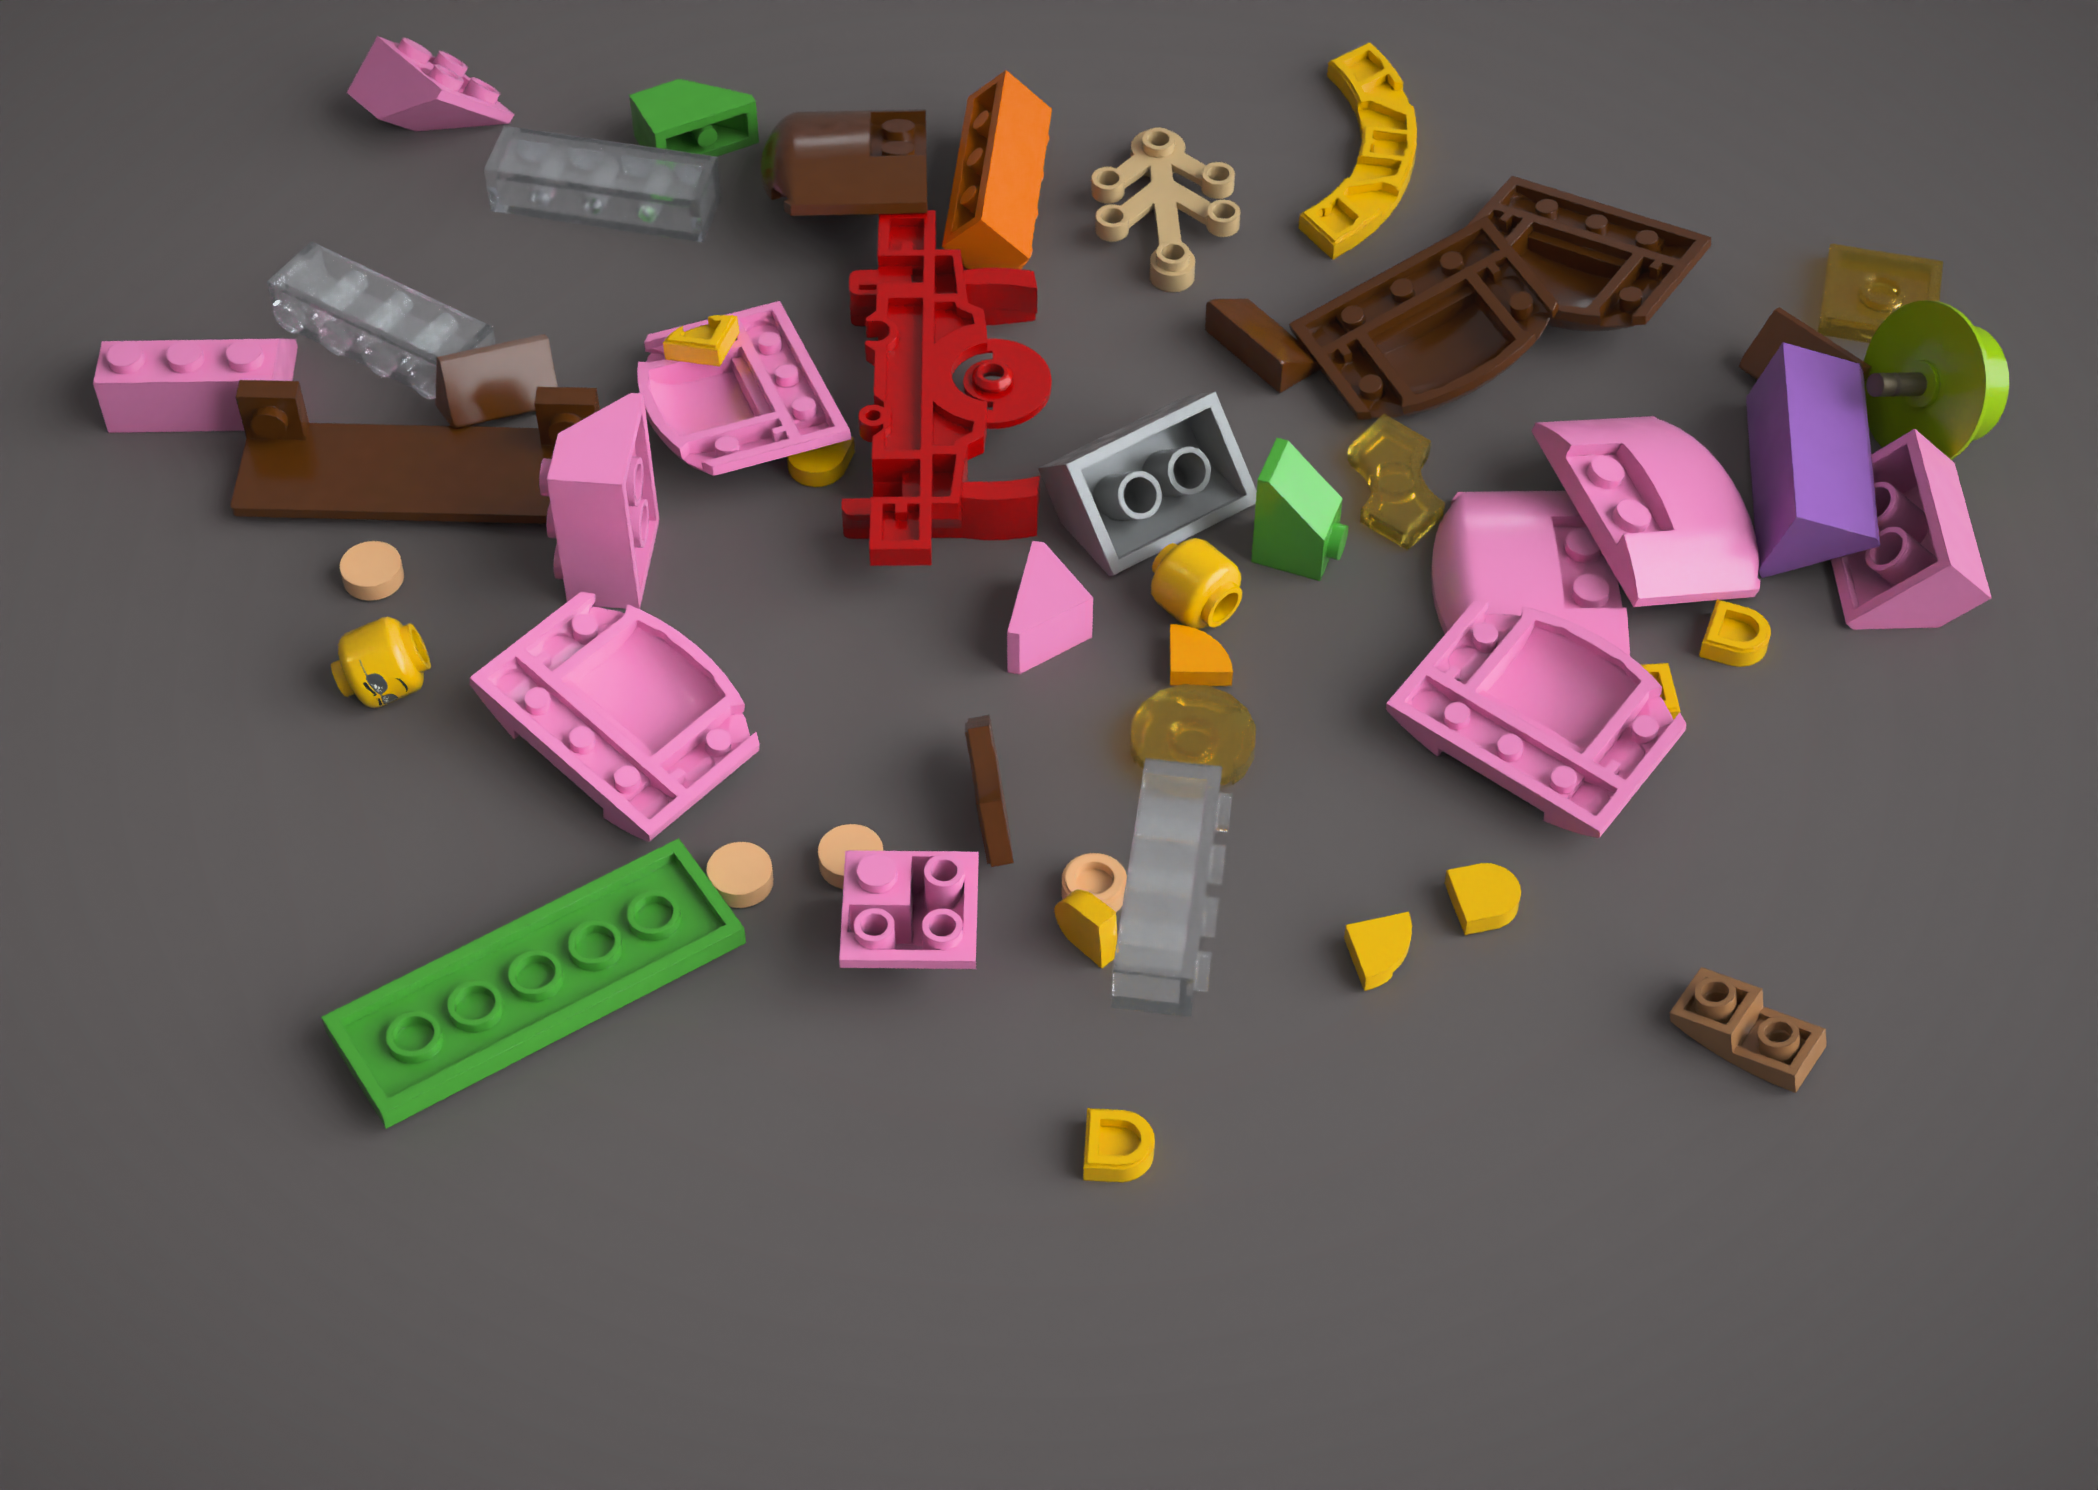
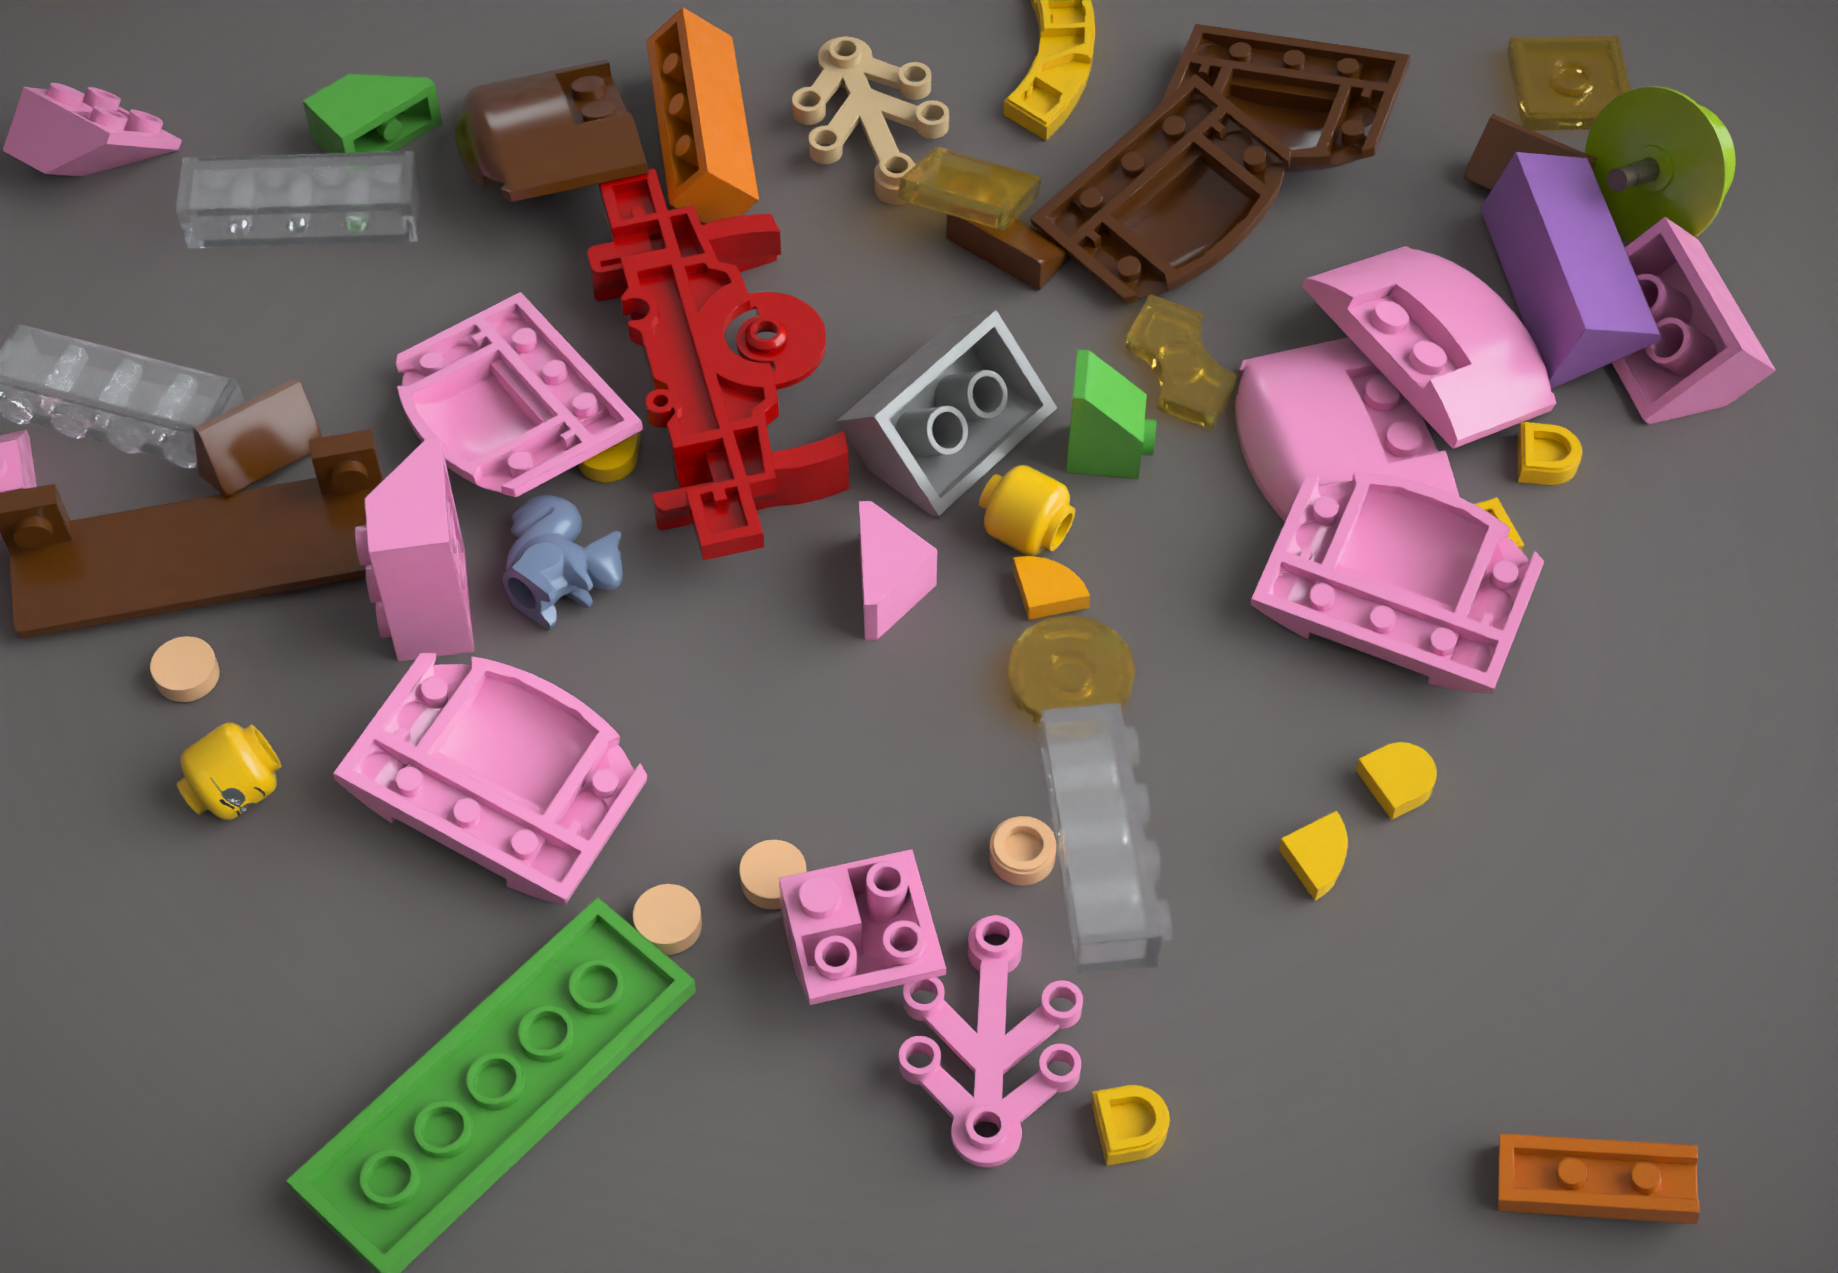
camera: 15 degrees left, 5 degrees up
(704, 343) = (460, 354): yellow tile -> none
(732, 544) = (549, 564): none -> sand blue animal
(989, 791) = (893, 775): reddish brown tile -> none
(1006, 1049) = (989, 1050): none -> bright pink plant
(1088, 925) = (1034, 896): yellow tile -> none
(1236, 285) = (969, 188): none -> clear yellow tile
(1554, 1293) = (1598, 1178): none -> orange hinge
(1735, 1025) = (1693, 864): medium nougat slope -> none

